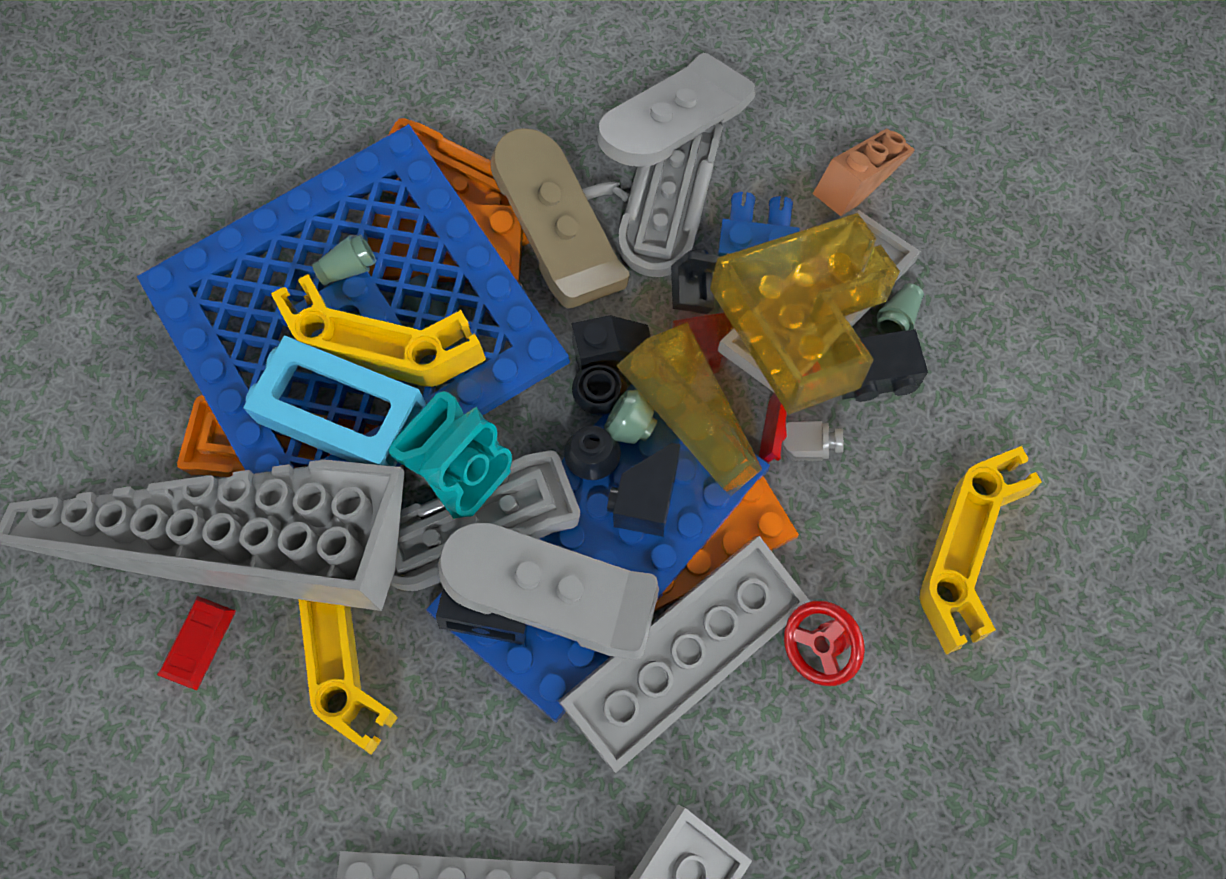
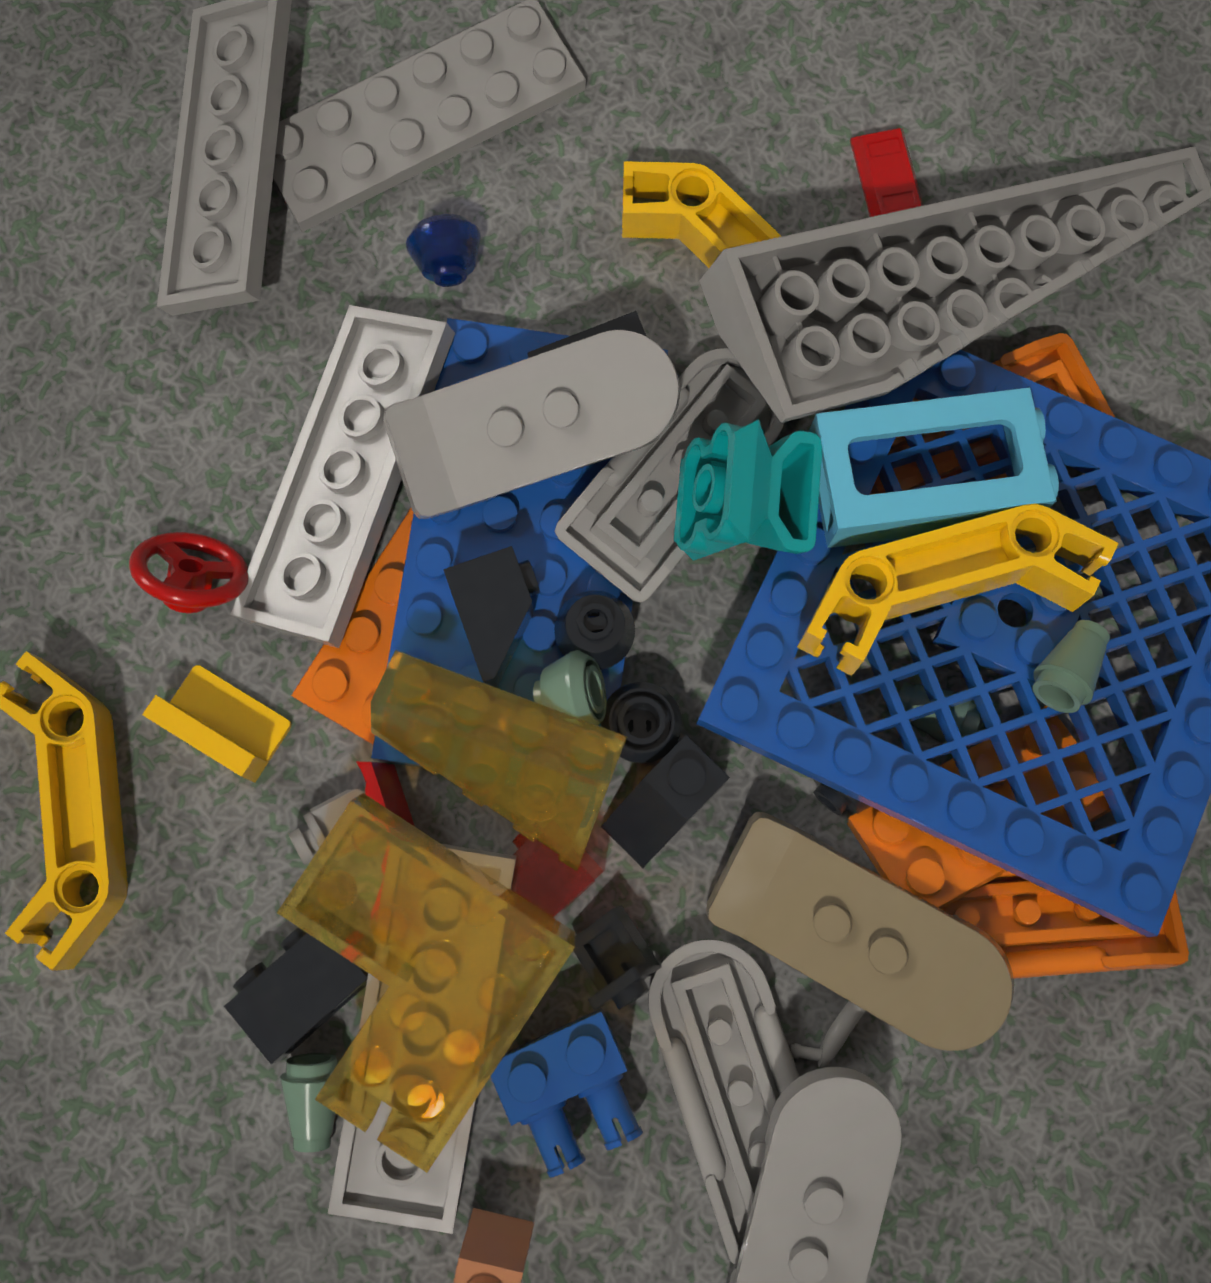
camera: 150 degrees right, 10 degrees up
(525, 771) = (444, 248): none -> clear blue cone
(853, 543) = (221, 722): none -> yellow panel

